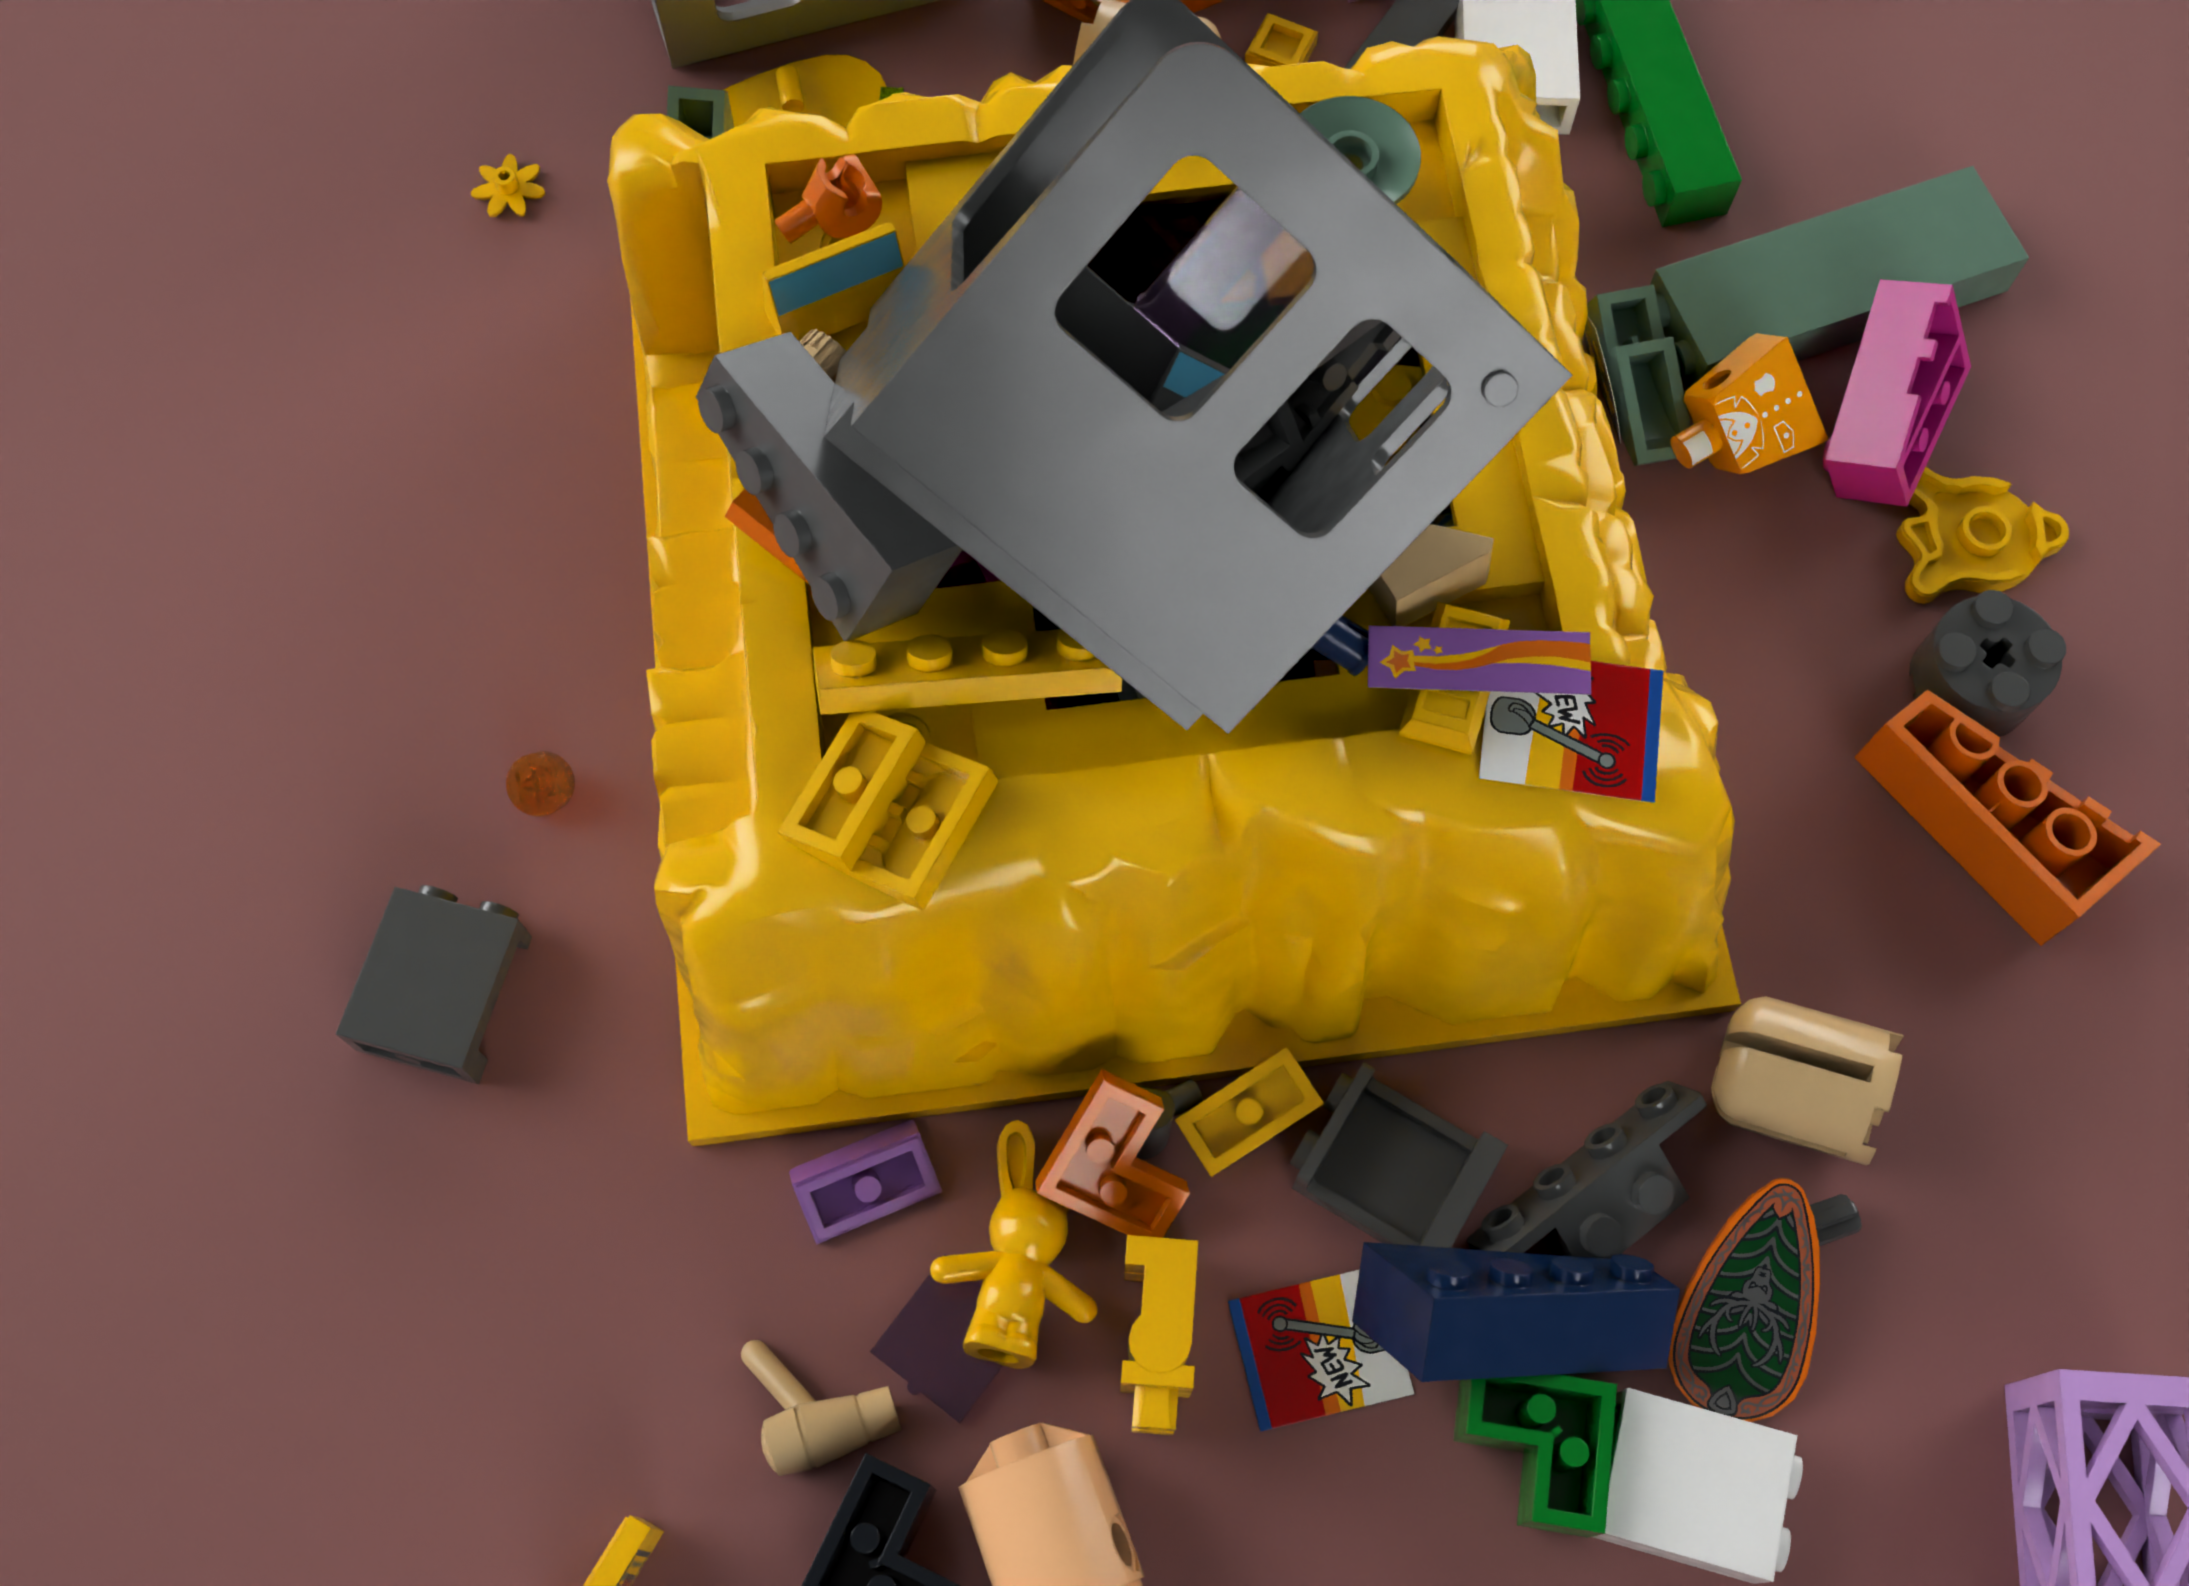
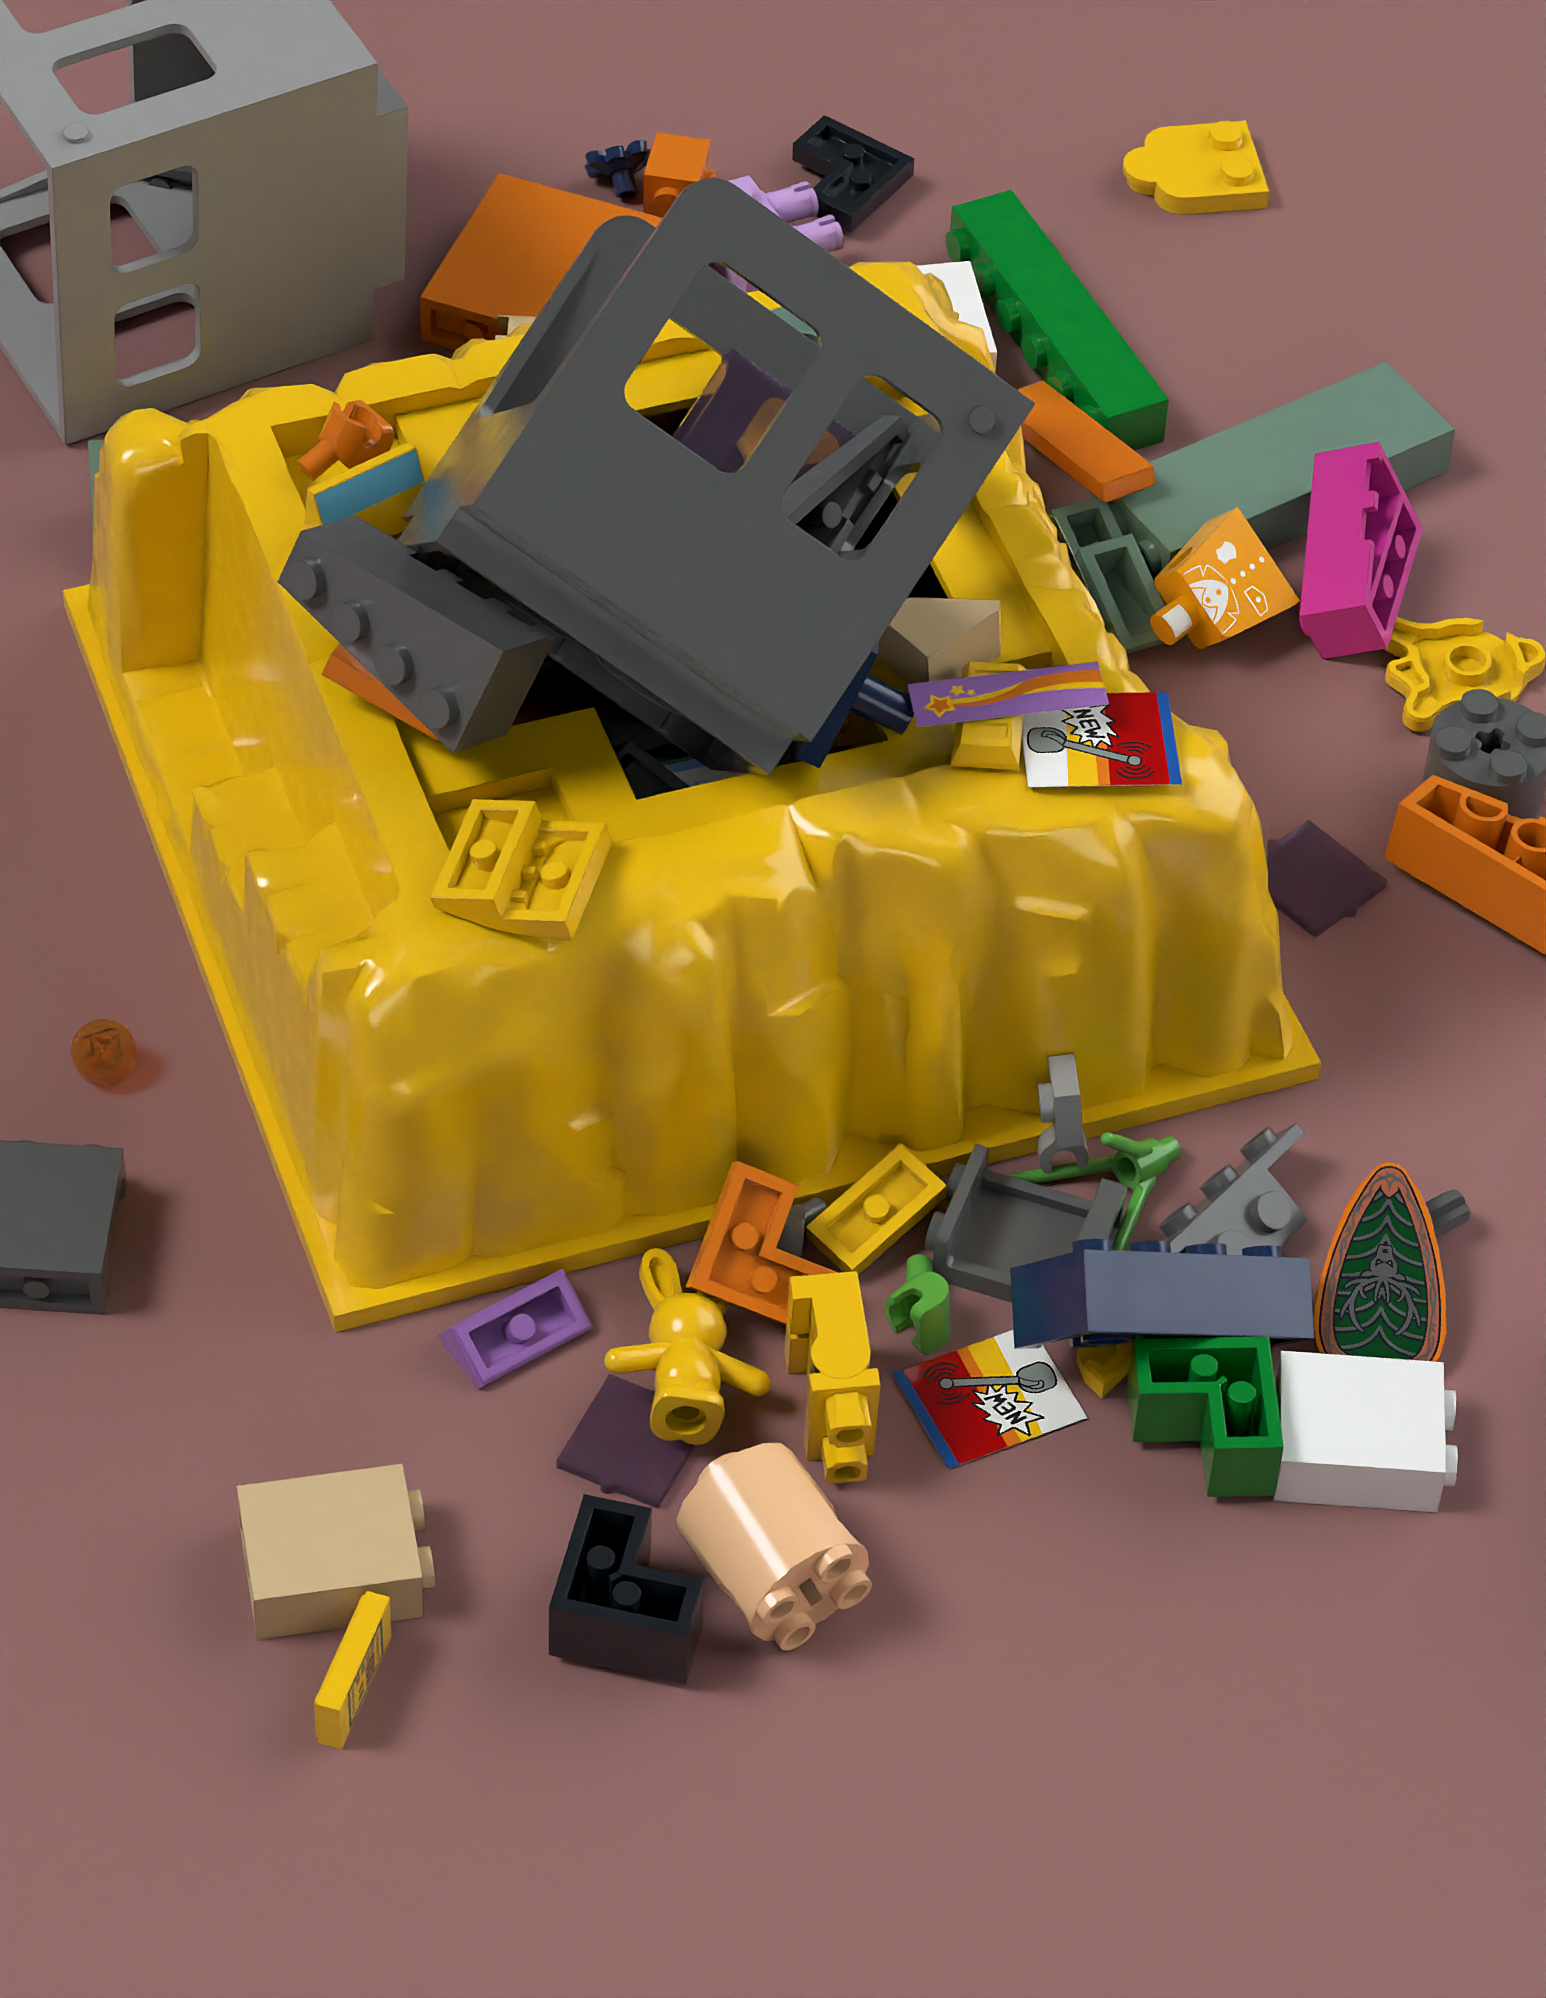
camera: 15 degrees left, 20 degrees down
(618, 1435) = (326, 1542): none -> tan brick
(811, 1430) = (517, 1522): tan piece -> none
(956, 671) = (538, 767): yellow plate -> none
(1272, 1226) = (921, 1303): none -> bright green piece
(1457, 1046) = (1061, 1105): none -> light grey plate
(1522, 1096) = (1134, 1165): none -> bright green plant
(1637, 215) = (1083, 446): none -> orange tile
(1777, 765) = (1317, 878): none -> piece
(1806, 1077) = (1390, 1099): tan cylinder -> none

